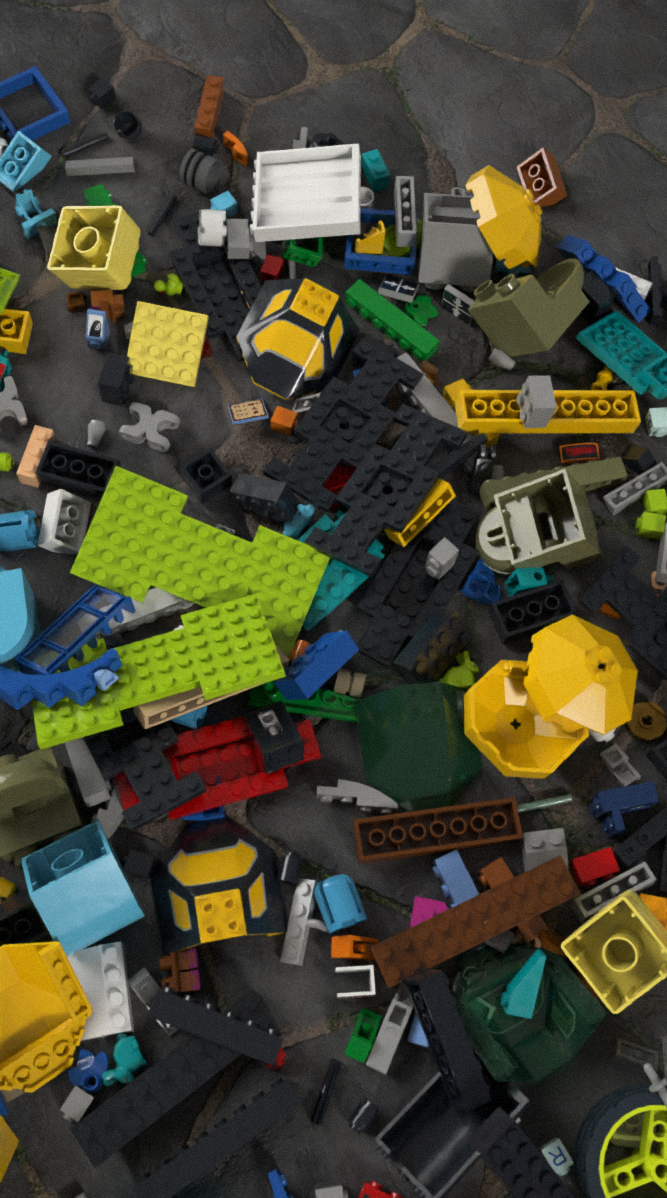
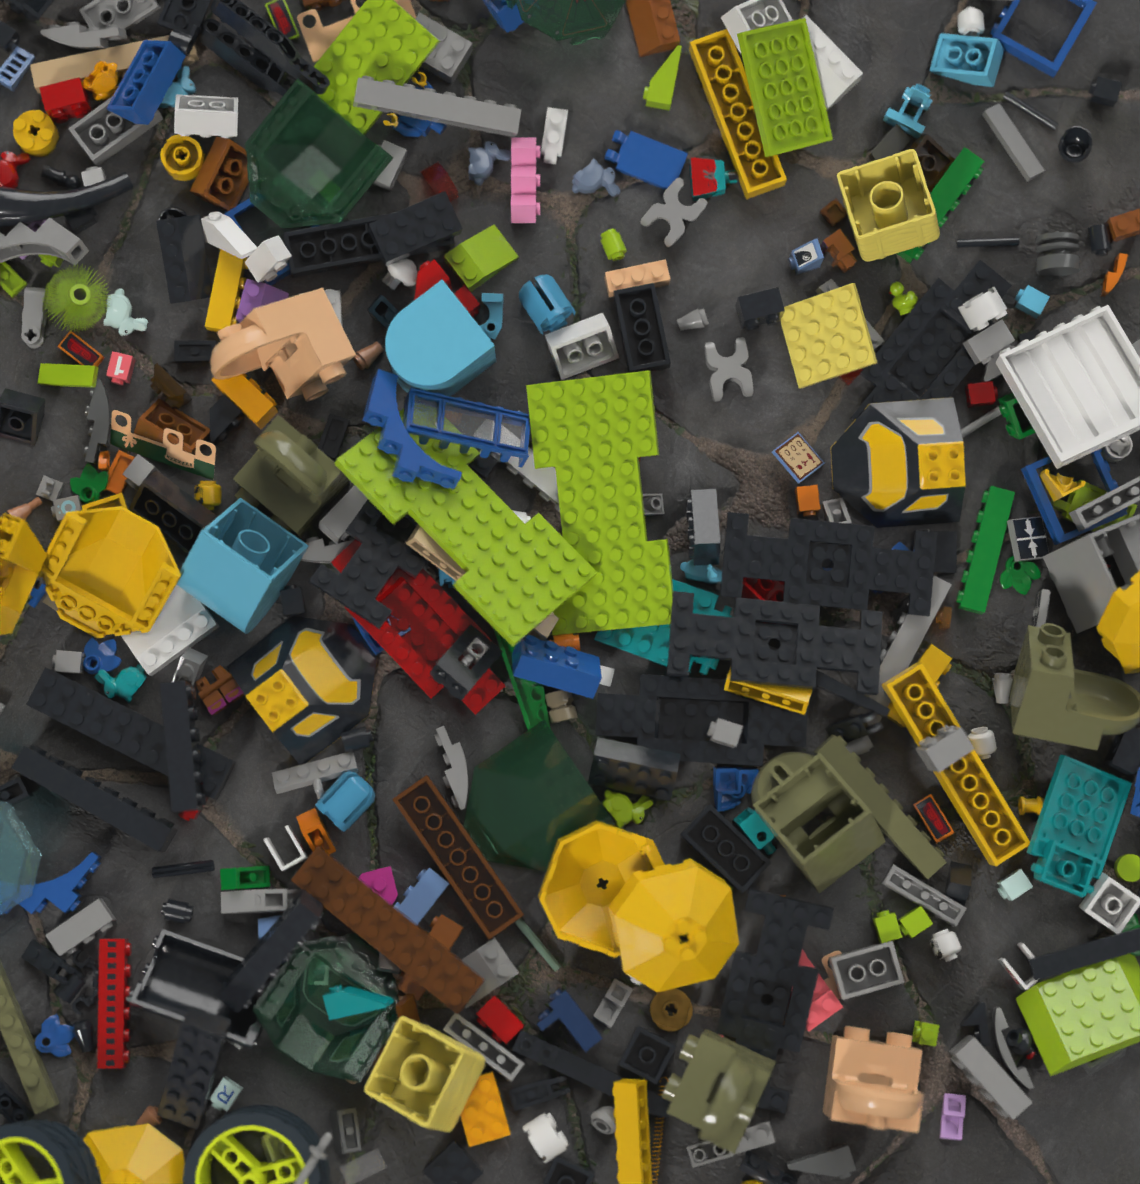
camera: 65 degrees right, 15 degrees up
(105, 678) = (429, 483): light blue tile -> none
(206, 475) = (702, 455): black brick -> none

